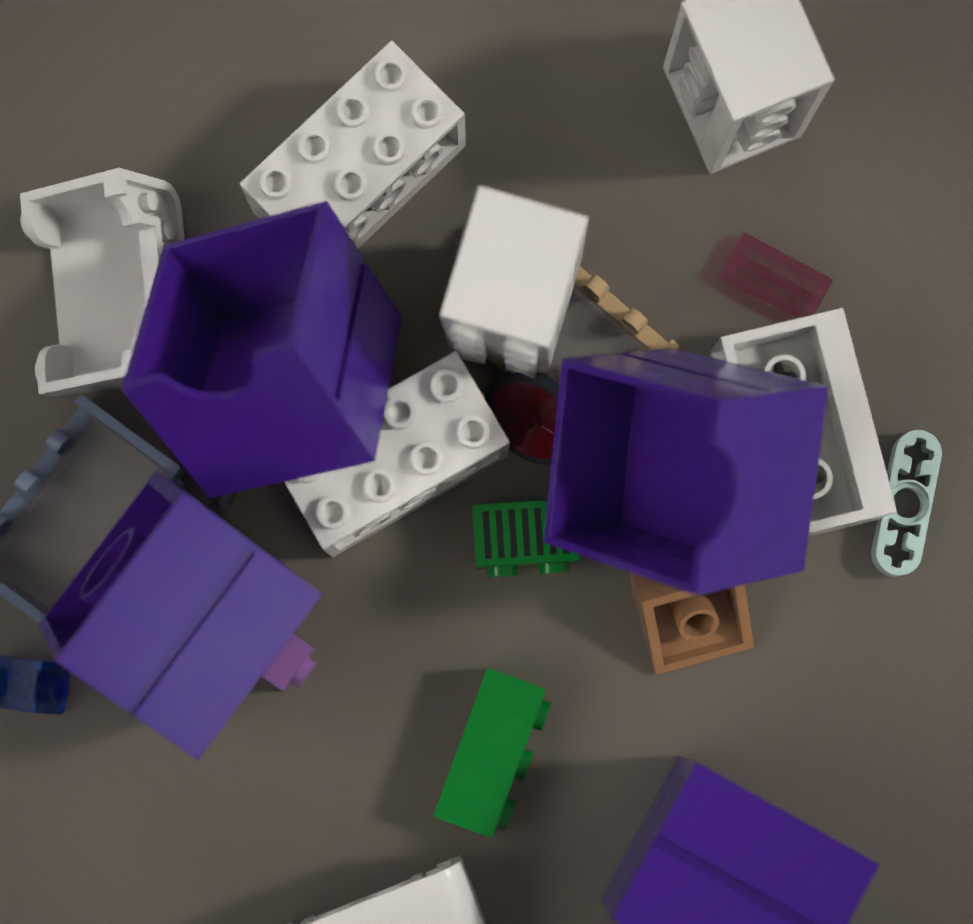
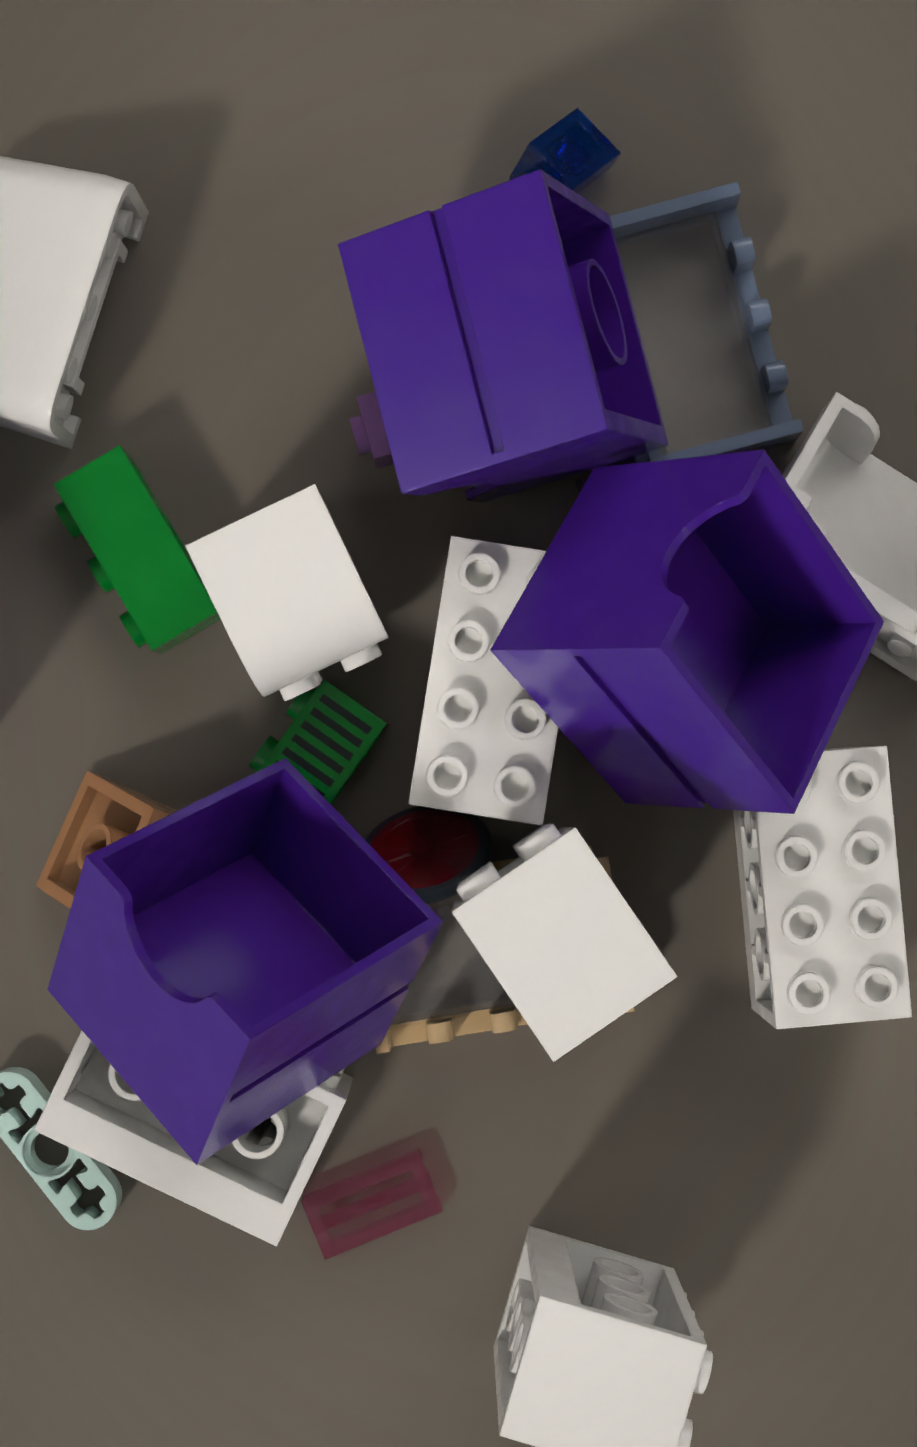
camera: 125 degrees right, 5 degrees up
(435, 620) = (289, 594): none -> white brick

